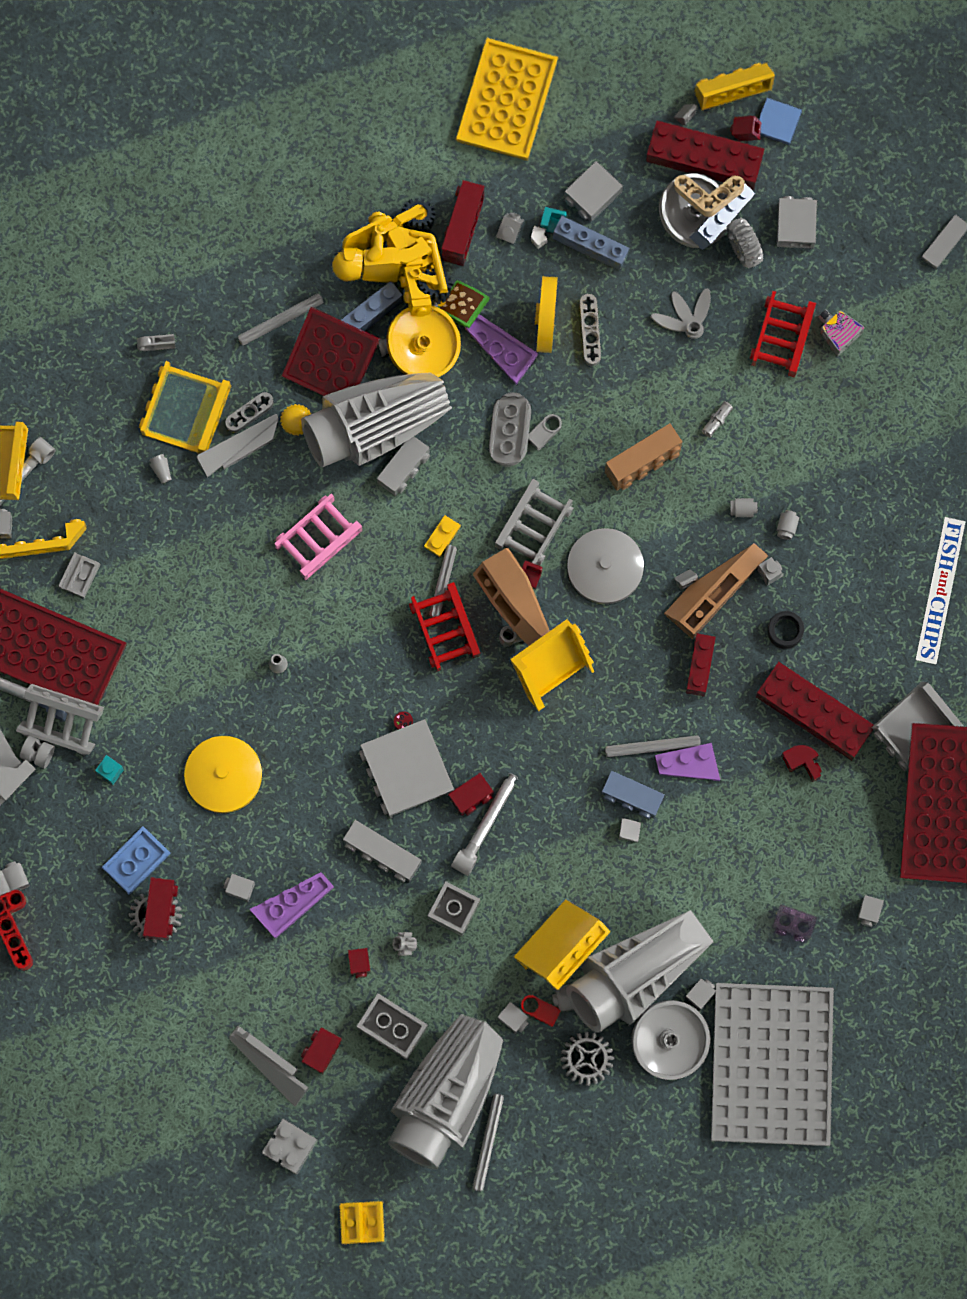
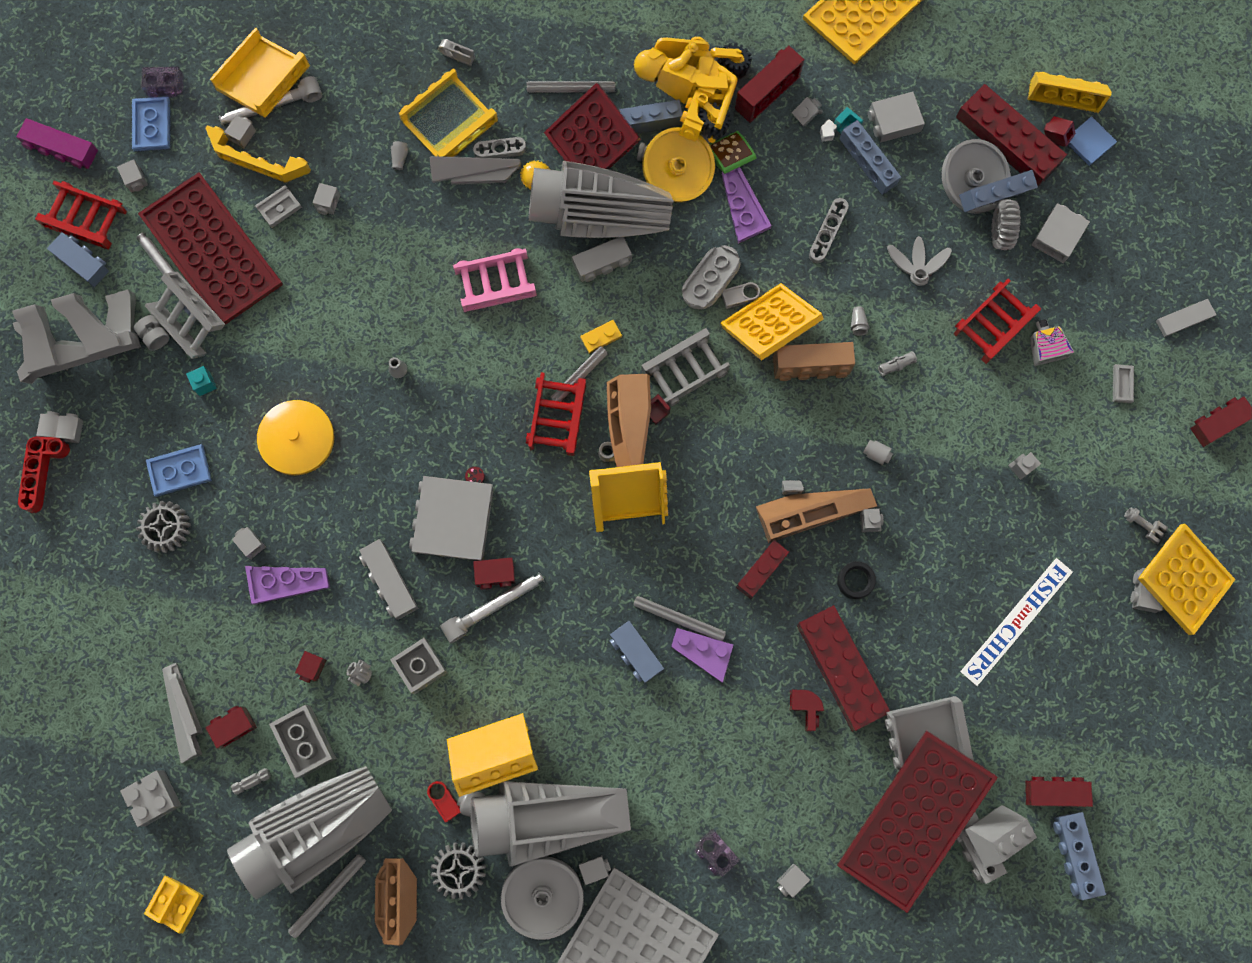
camera: 30 degrees right, 0 degrees up
(120, 545) = (326, 199): none -> light grey brick
(160, 909) = (164, 523): dark red brick -> none
(365, 1086) = (250, 781): none -> light grey axle
(513, 1018) = (414, 795): light grey brick -> none
(545, 314) = (796, 193): yellow brick -> none
(548, 1111) = (395, 901): none -> medium nougat wedge
(587, 442) = (771, 321): none -> yellow plate
(605, 566) = (727, 437): light grey dish -> none
(629, 830) = (616, 682): light grey slope -> none
(663, 399) = (859, 322): none -> light grey cone
(686, 113) = (1013, 94): light grey slope -> none
(707, 199) = (990, 170): tan beam -> none
(787, 525) = (909, 488): light grey brick -> none
(875, 450) = (1024, 465): none -> light grey brick
(922, 331) = (1123, 383): none -> light grey tile

